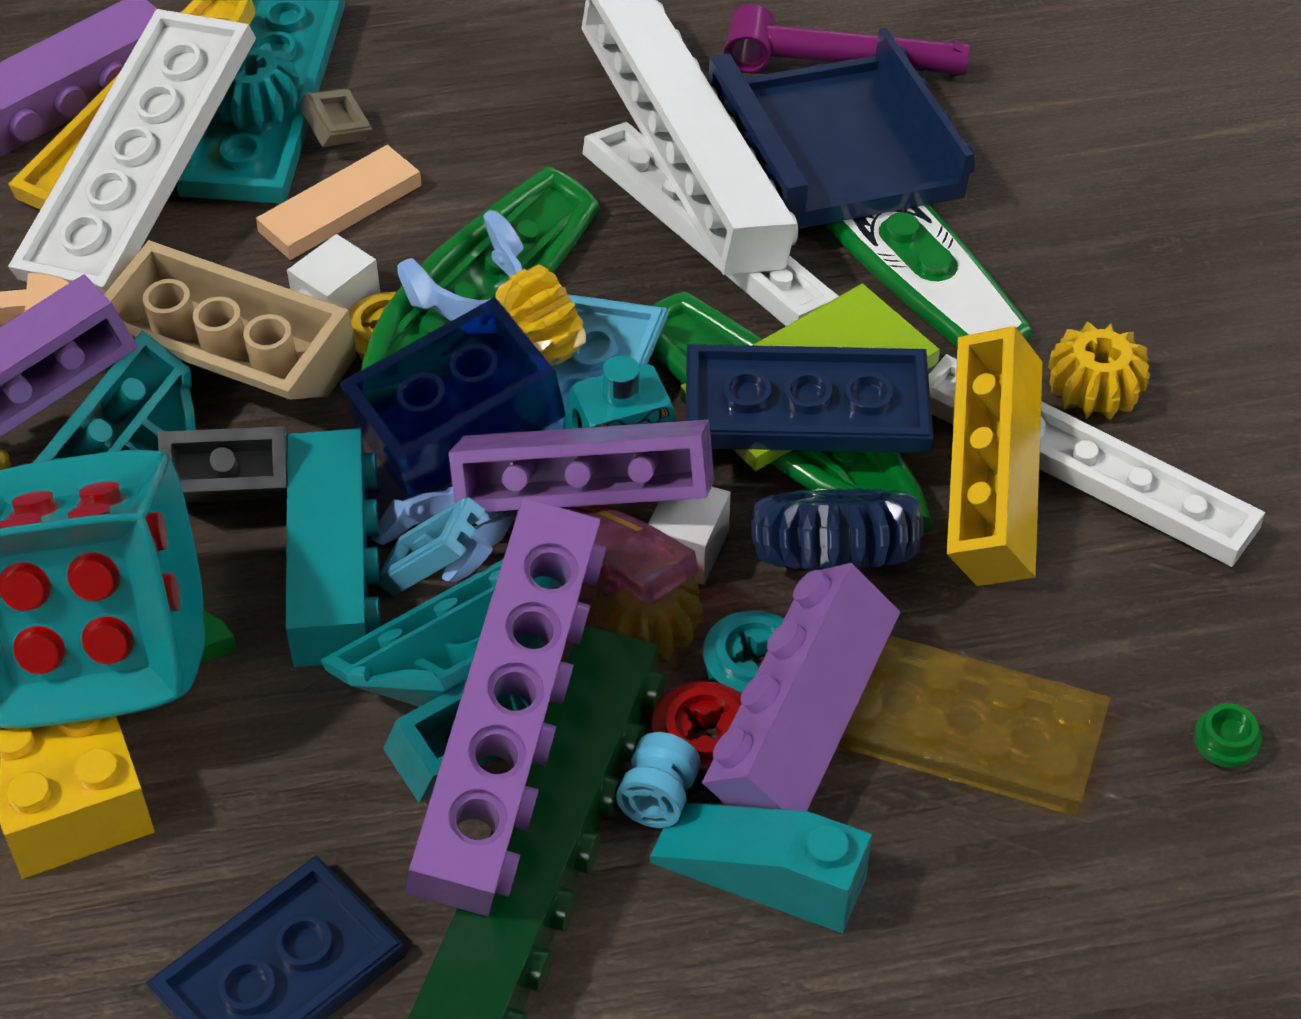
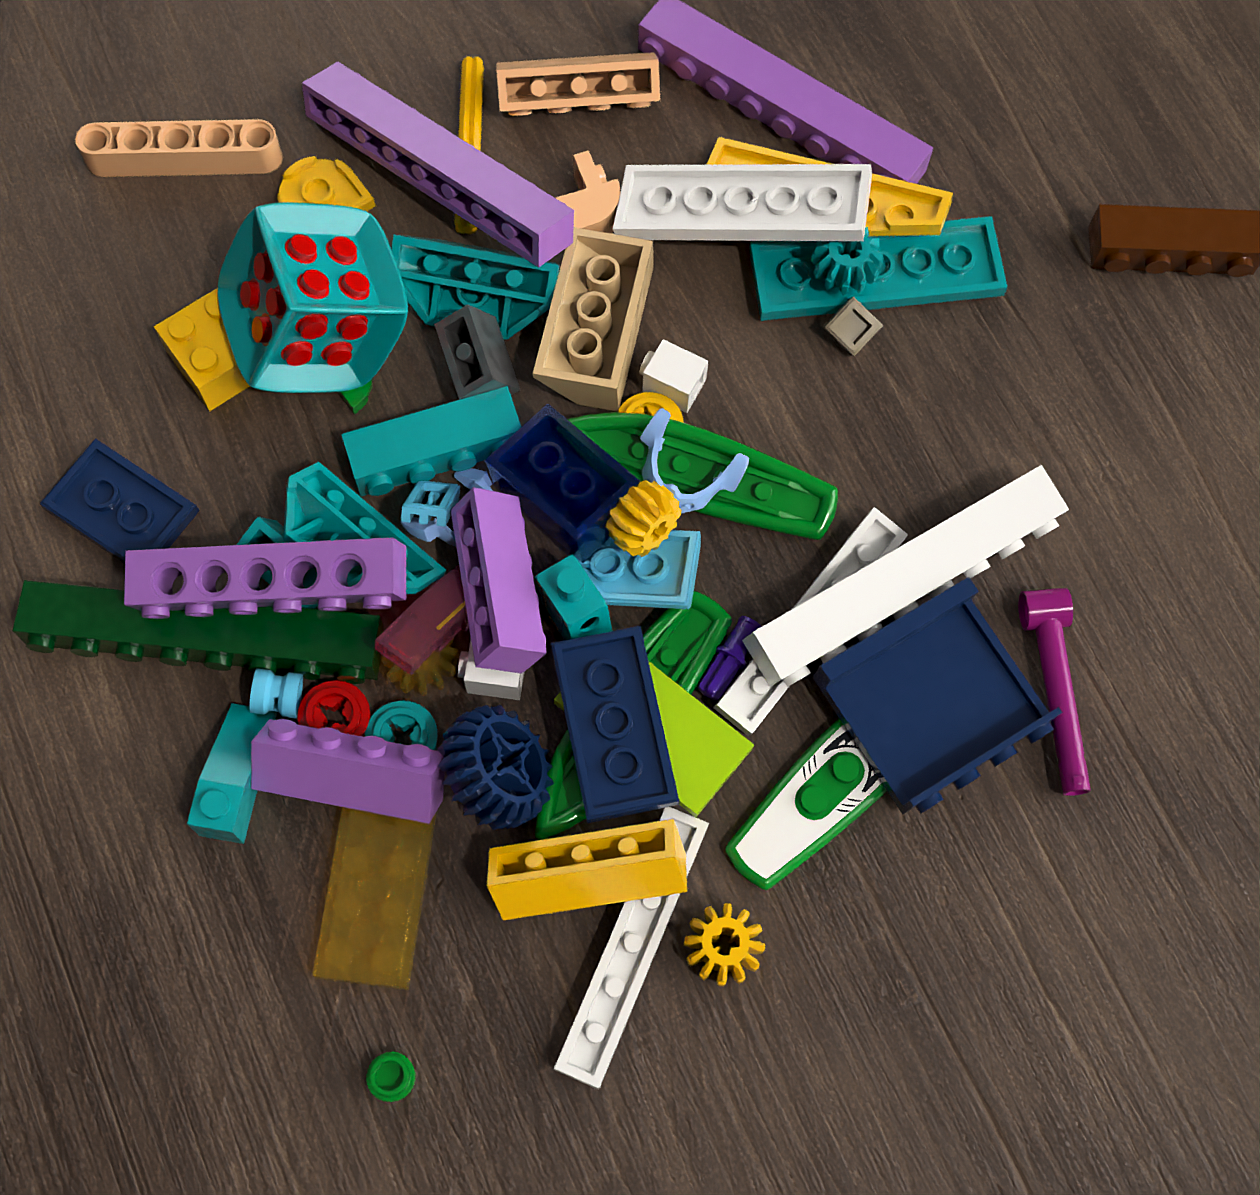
camera: 75 degrees right, 20 degrees up
(338, 202) = (772, 356): light nougat tile -> none
(731, 301) = (728, 660): none -> dark purple axle

